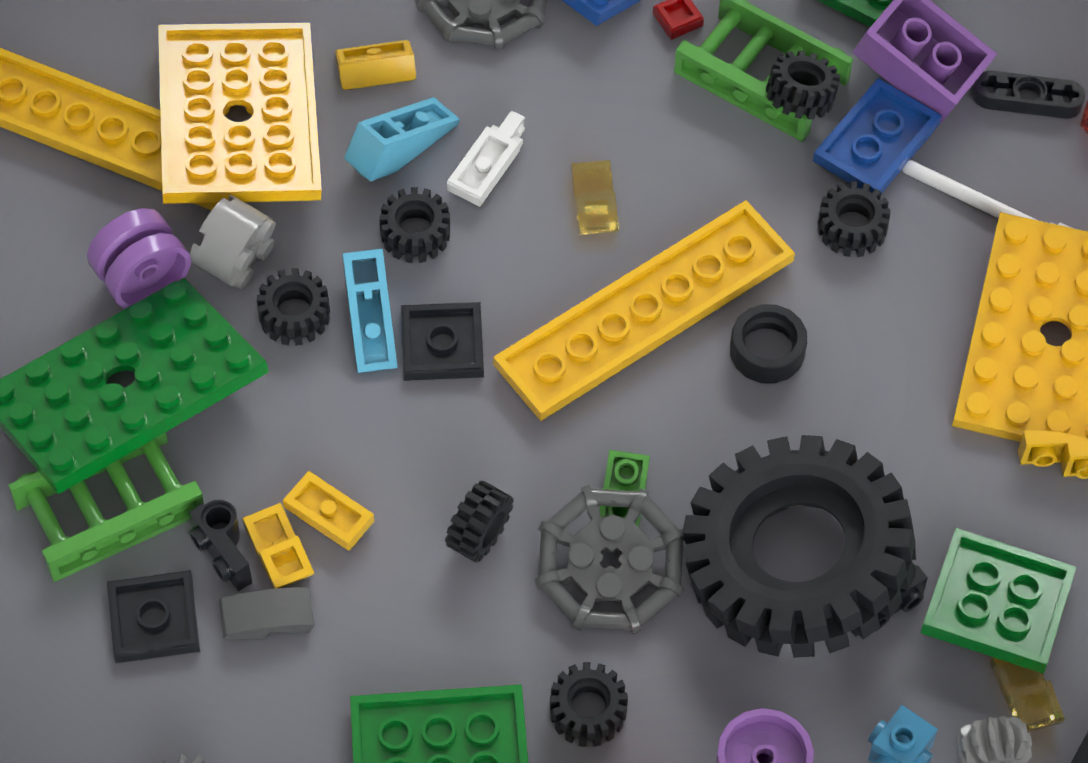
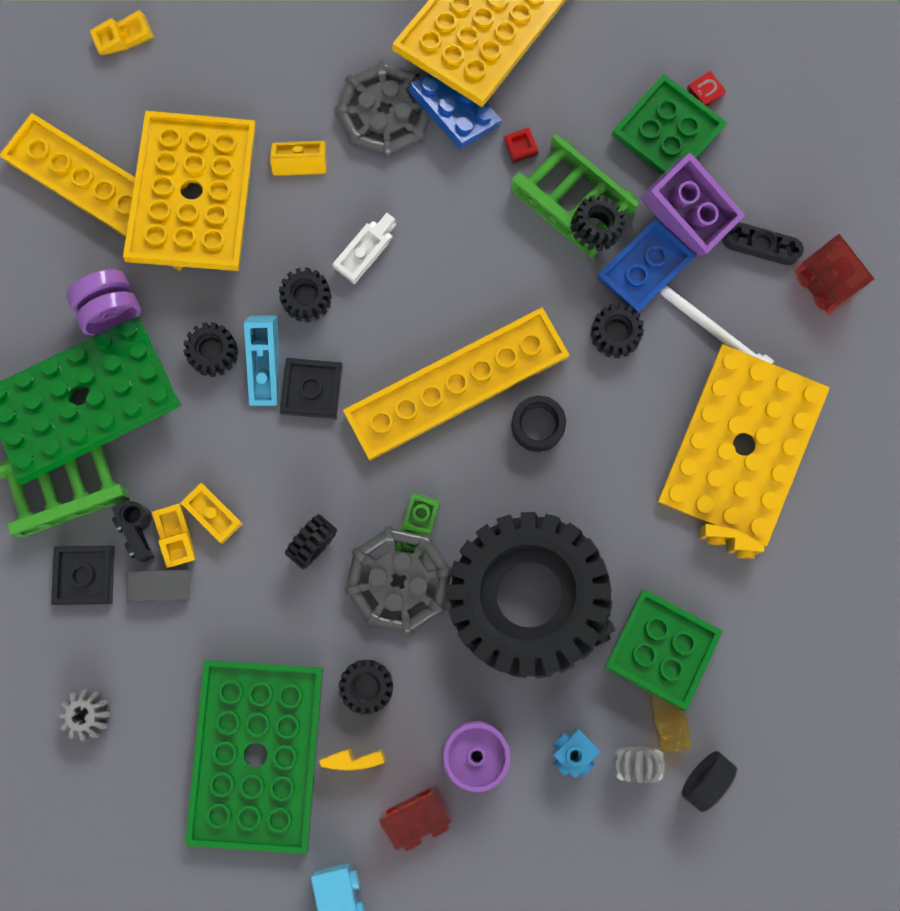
camera: 10 degrees right, 20 degrees up
(233, 241) = (172, 296): light grey brick -> none
(397, 137) = (304, 222): medium azure slope -> none
(594, 197) = (436, 288): clear yellow slope -> none

